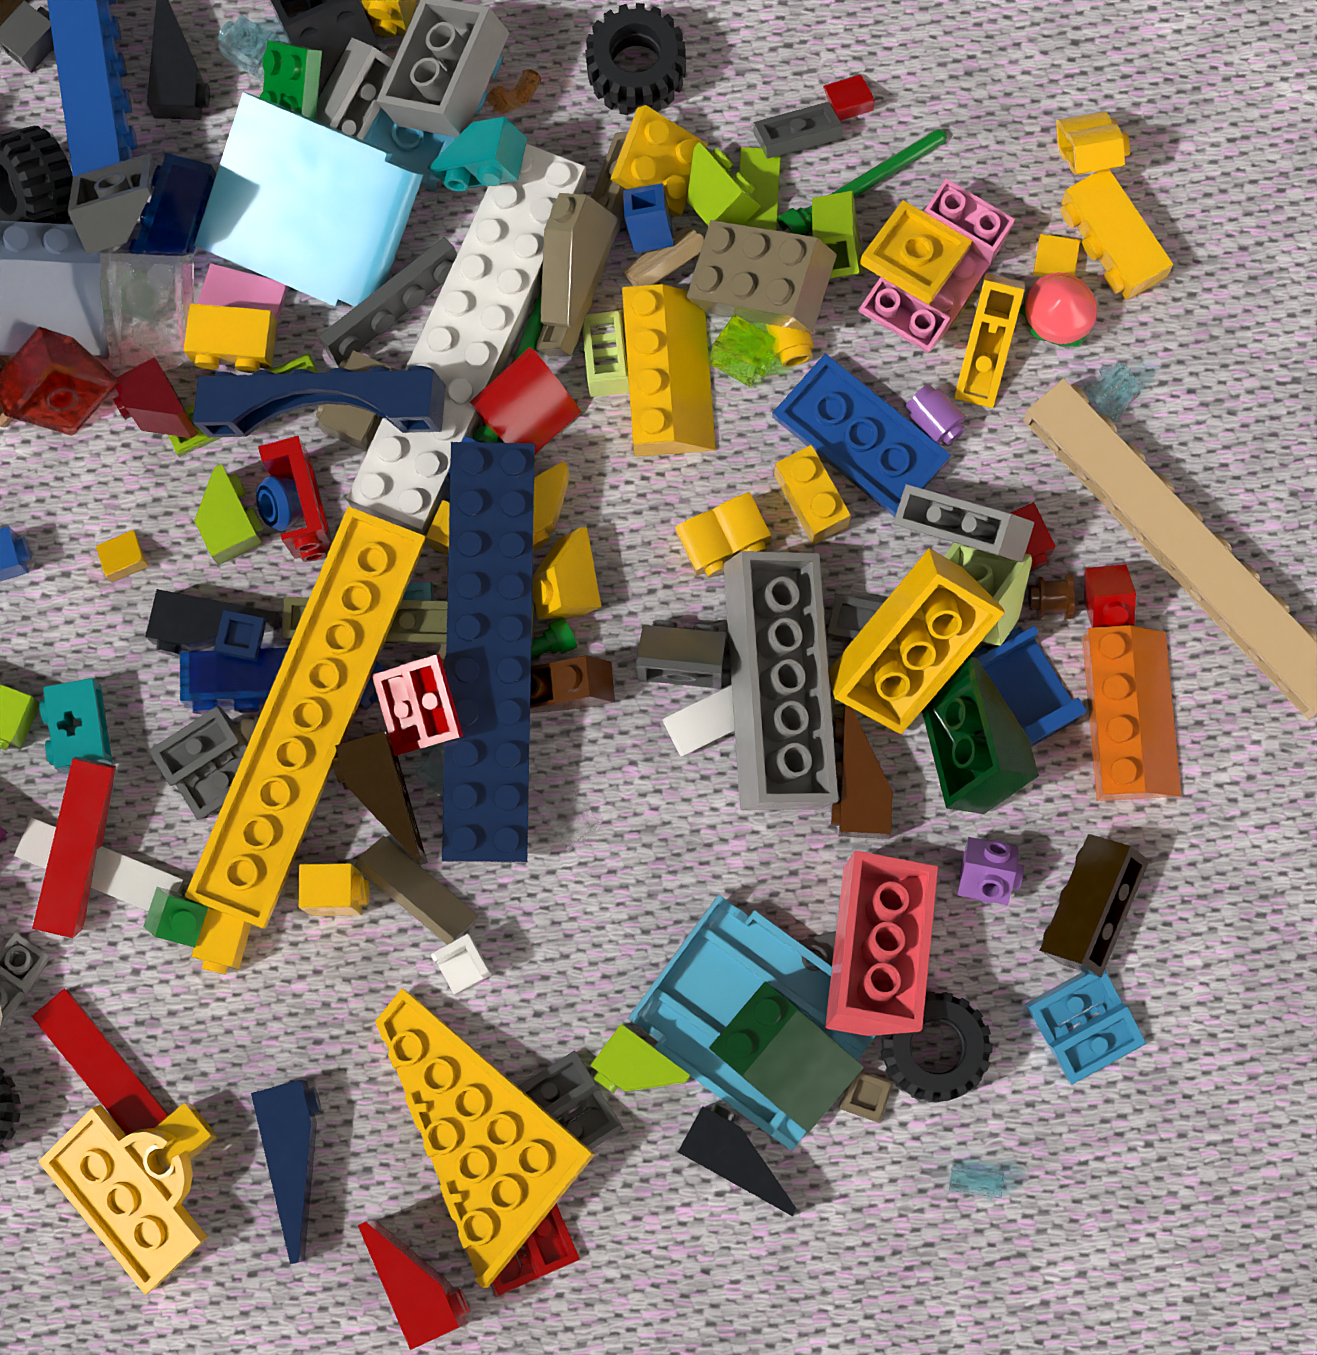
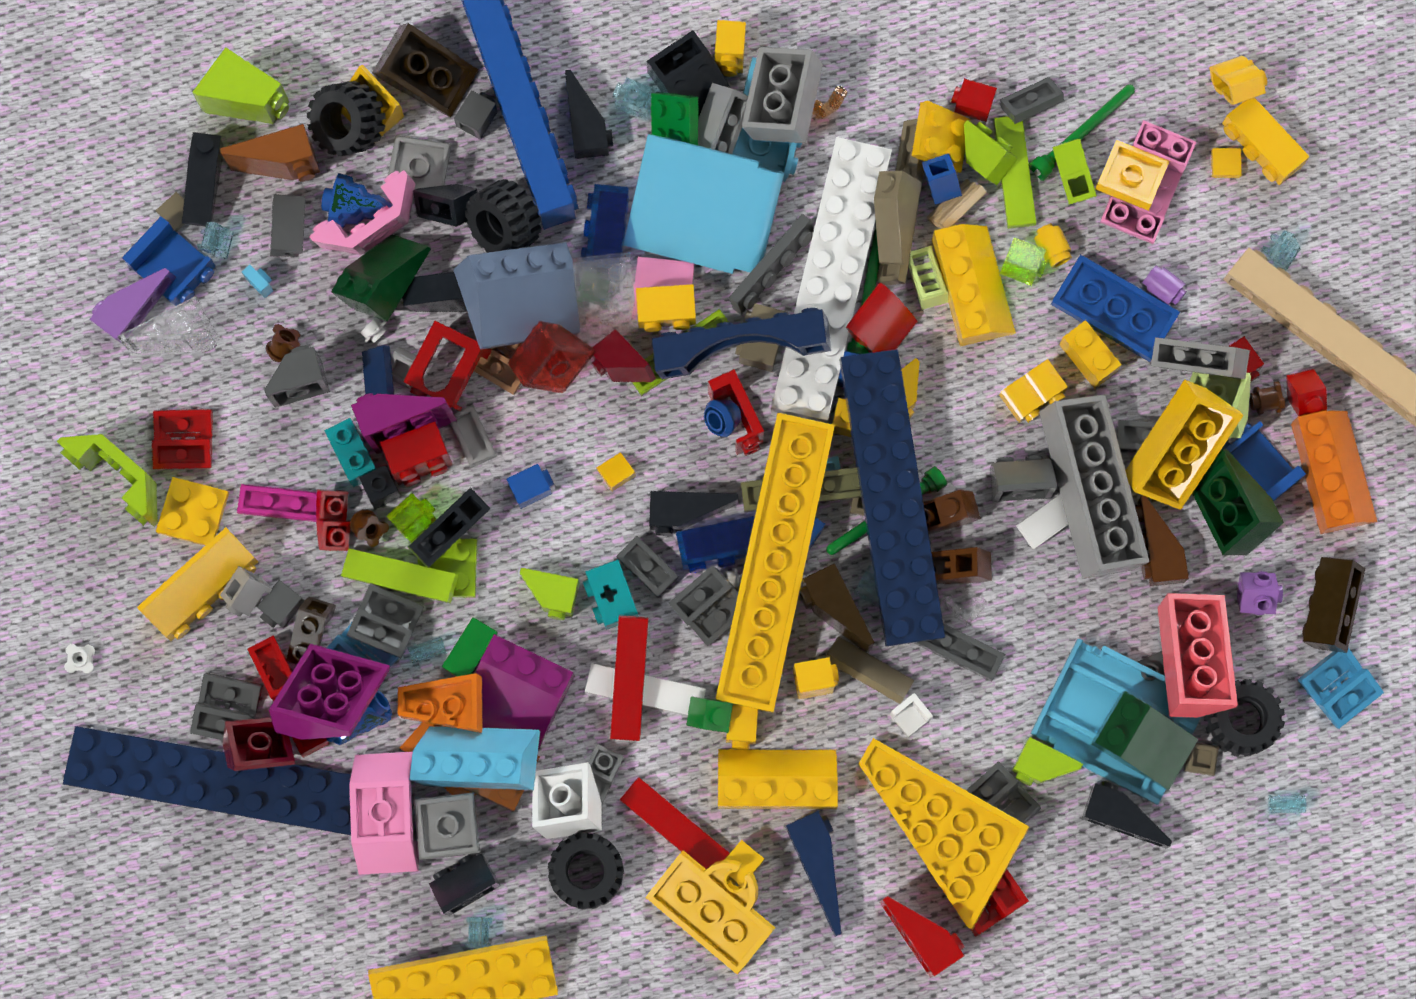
camera: 15 degrees left, 0 degrees up
(109, 202) = (575, 225): dark grey slope -> none
(136, 694) = (647, 566): none -> dark grey plate
(224, 520) = (685, 435): lime slope -> none
(240, 635) = (718, 514): dark blue plate -> none
(255, 1023) = (777, 779): none -> yellow slope
(417, 705) = (852, 541): slope -> none
(482, 156) = (821, 153): teal slope -> none
(558, 887) = (966, 652): none -> dark grey plate
(566, 579) = (933, 438): yellow slope -> none
(572, 764) = (962, 566): none -> reddish brown slope
(631, 29) = (905, 88): black tyre -> none
(717, 117) = (973, 99): none -> red brick
(762, 275) = (1030, 208): dark tan brick -> none
(850, 97) = (1062, 70): red slope -> none
(989, 340) = (1192, 226): yellow slope -> none
(1060, 310) = (1236, 199): coral hair -> none

